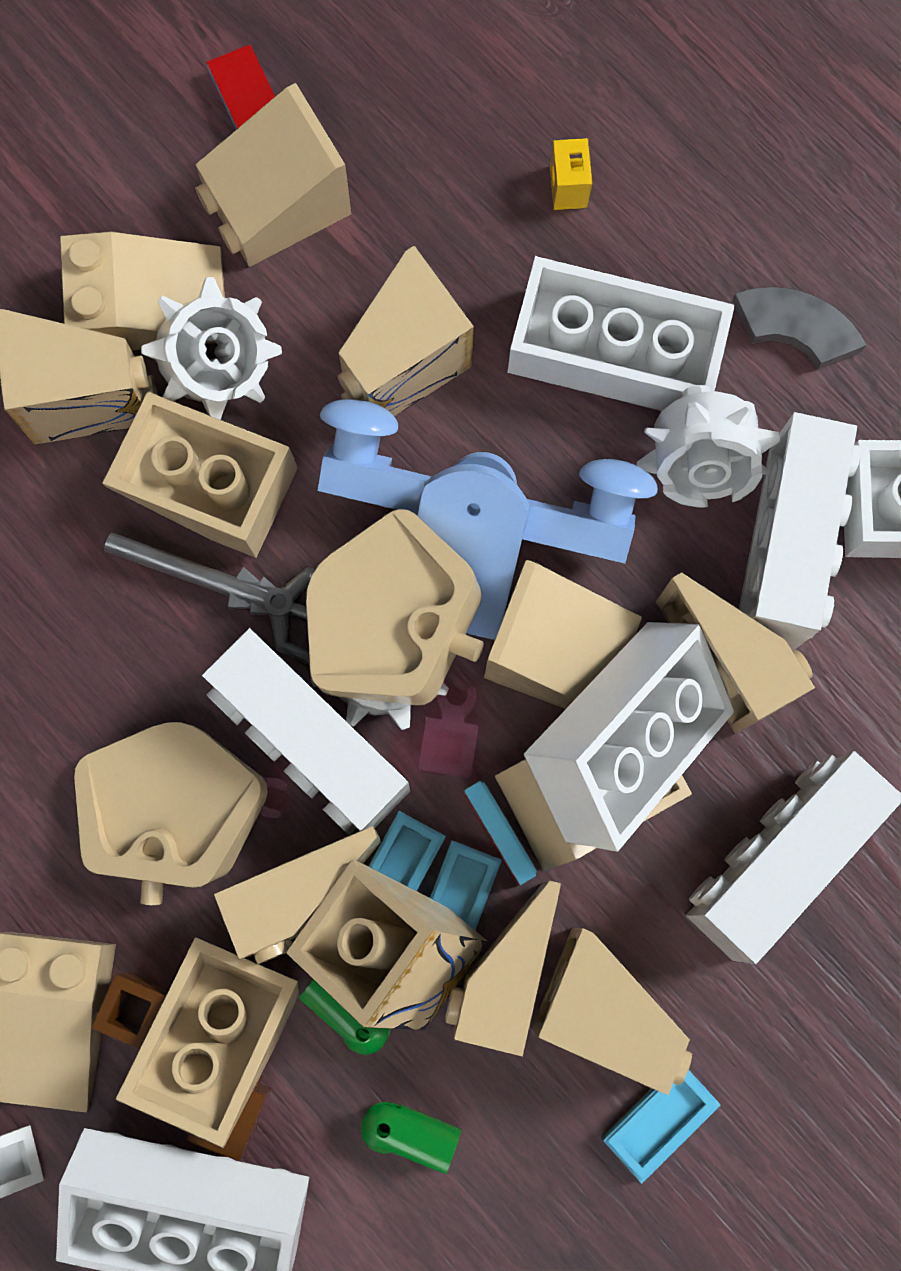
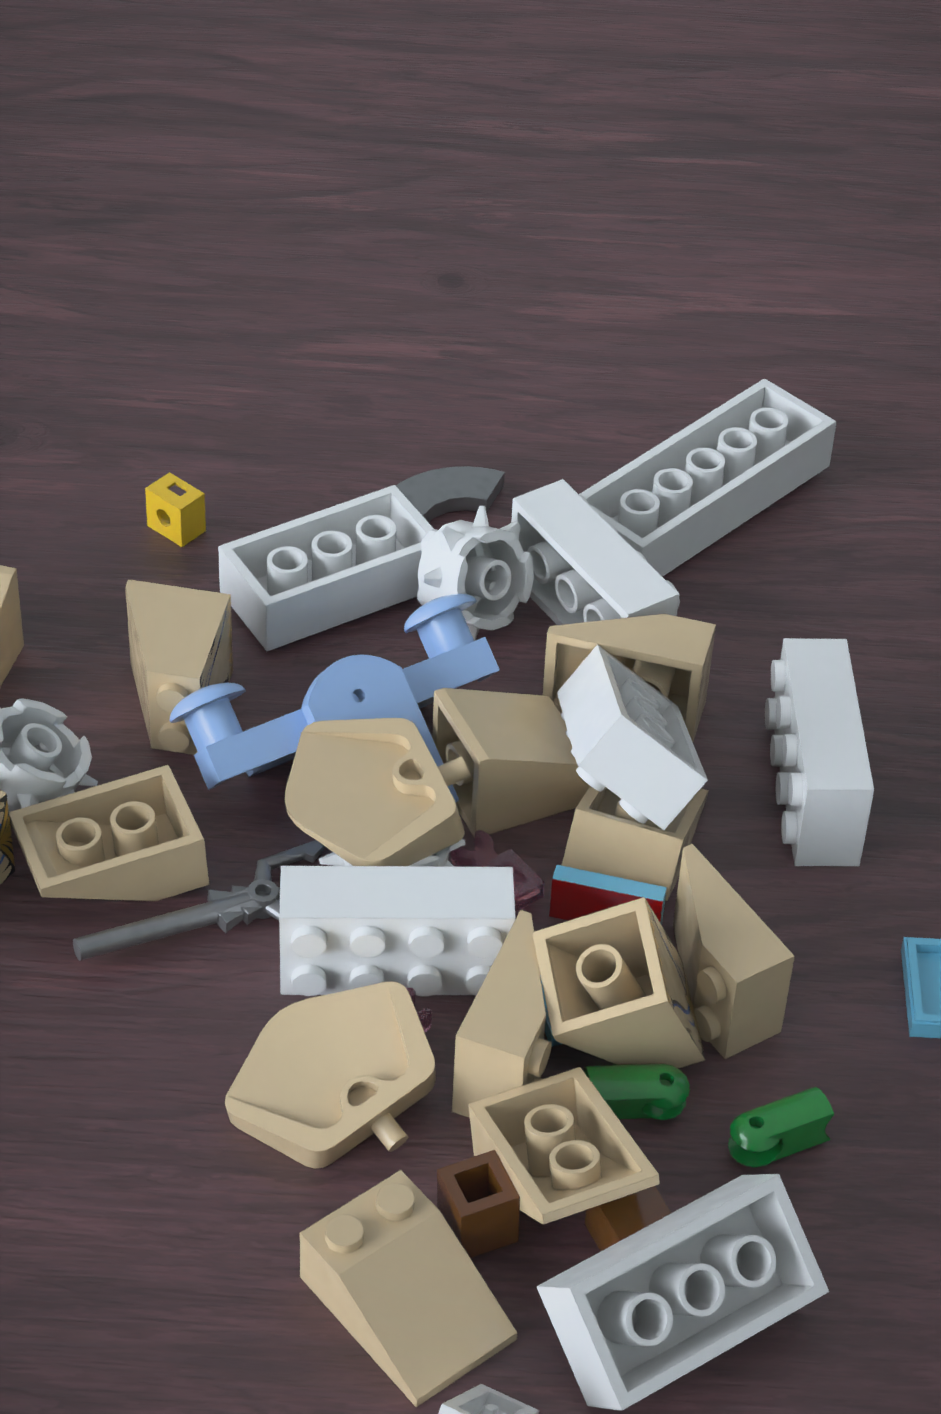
camera: 45 degrees left, 35 degrees down
(609, 1017) = (835, 916): tan slope -> none

